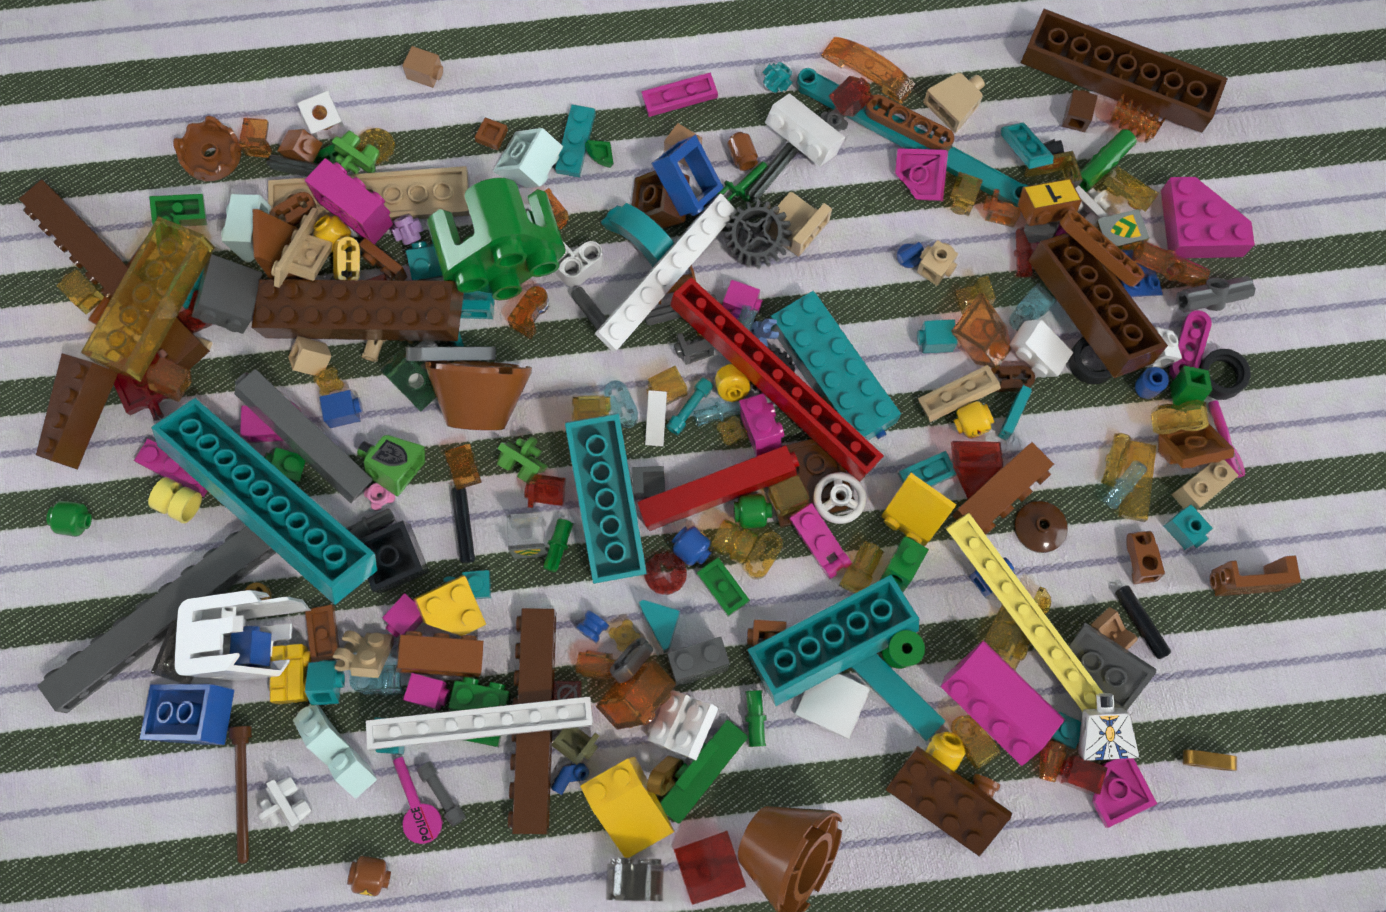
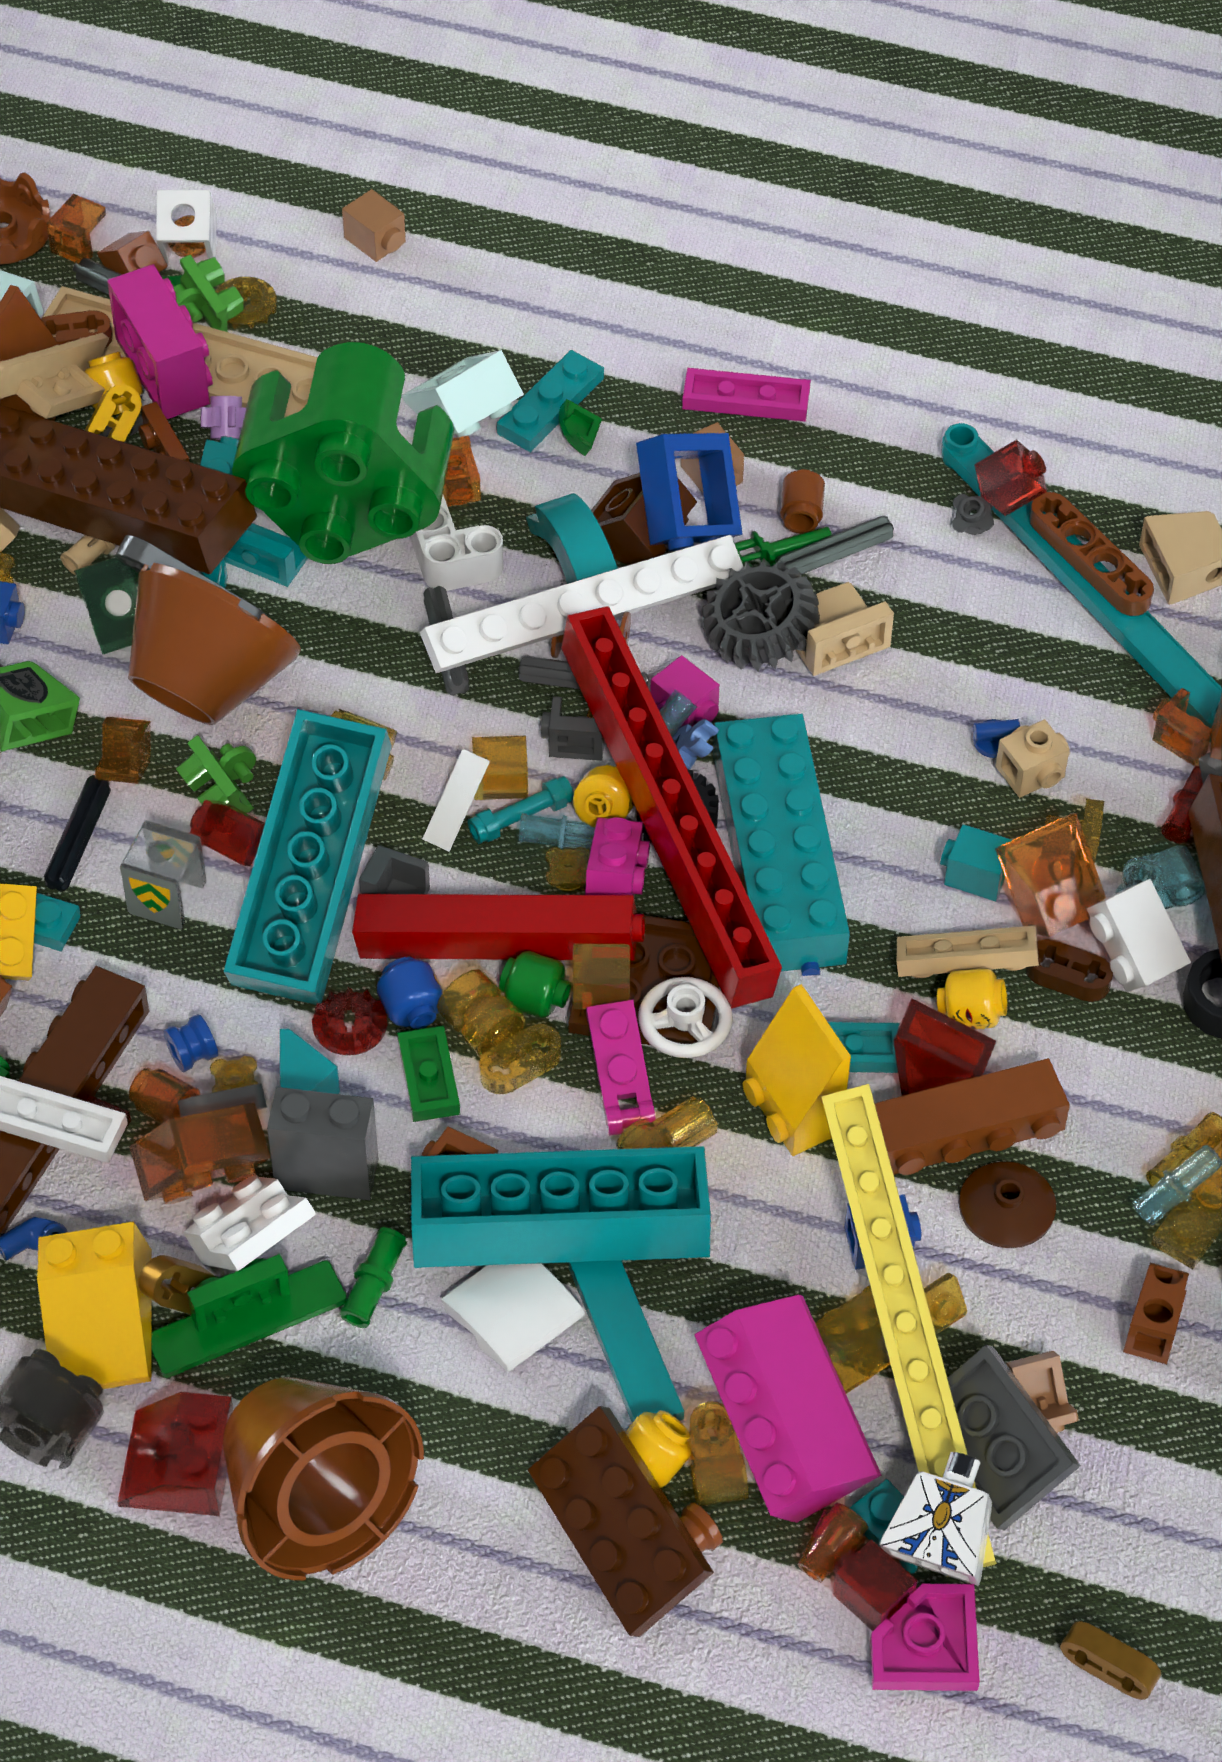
camera: 25 degrees right, 20 degrees down
(491, 133) = (426, 344): dark orange plate -> none
(527, 311) = (345, 590): clear orange leg -> none
(558, 544) = (204, 914): green axle -> none
(575, 744) = (68, 1190): olive bracket -> none
(627, 401) = (407, 767): clear light blue beam -> none
(777, 77) = (913, 422): teal gear -> none
(804, 129) = (916, 505): white brick -> none
(871, 65) = (1079, 463): clear orange slope -> none
(905, 562) = (742, 1149): green torso -> none
(913, 650) = (667, 1269): green piece -> none
(923, 172) = (1079, 629): dark pink plate -> none
(964, 193) = (1134, 685): clear yellow brick -> none
(1014, 413) = (1047, 1016): teal tile -> none
(1143, 622) = (1106, 1410): black axle -> none

